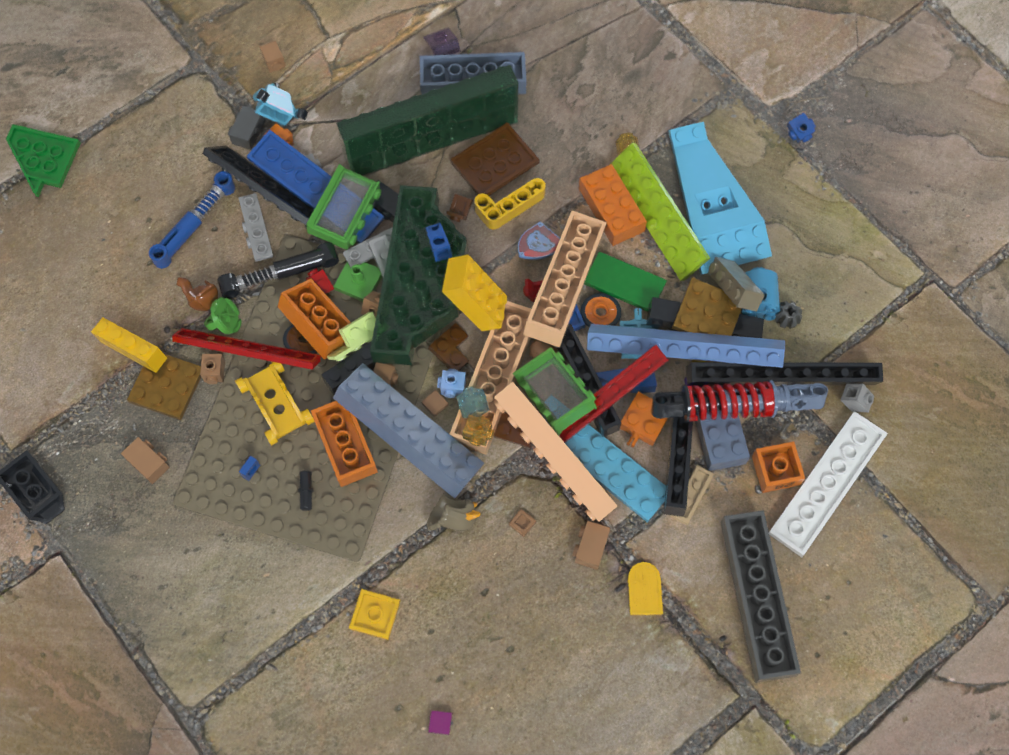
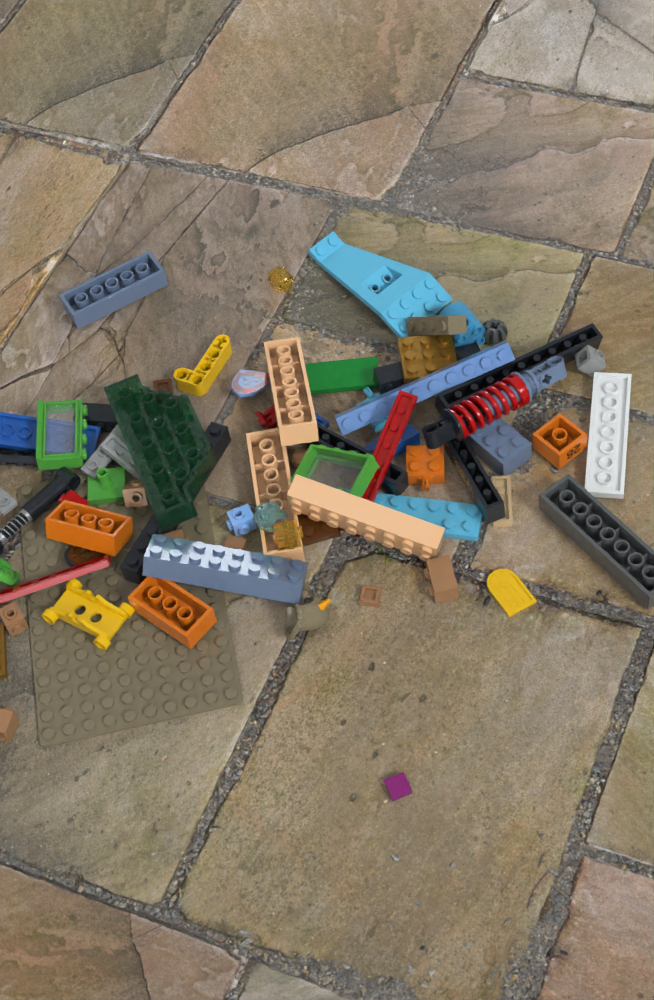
camera: 20 degrees left, 15 degrees down
(249, 468) = (97, 675): blue tile -> none
(305, 490) = (160, 667): black axle -> none
(354, 336) = (132, 518): yellowish green bracket -> none
(374, 614) = (284, 734): yellow tile -> none
(429, 121) = (99, 333): clear green brick -> none
(438, 242) = (165, 407): blue leg -> none
(443, 42) = (71, 279): clear purple piece -> none
(446, 348) = (218, 497): reddish brown plate -> none
(474, 293) = (220, 430): yellow brick -> none
(495, 160) = (172, 343): reddish brown plate -> none
(604, 301) = (329, 400): orange wheel -> none
(612, 204) = (287, 320): orange brick -> none
(661, 213) = (338, 311): lime plate -> none
(803, 123) = (416, 199): blue brick -> none

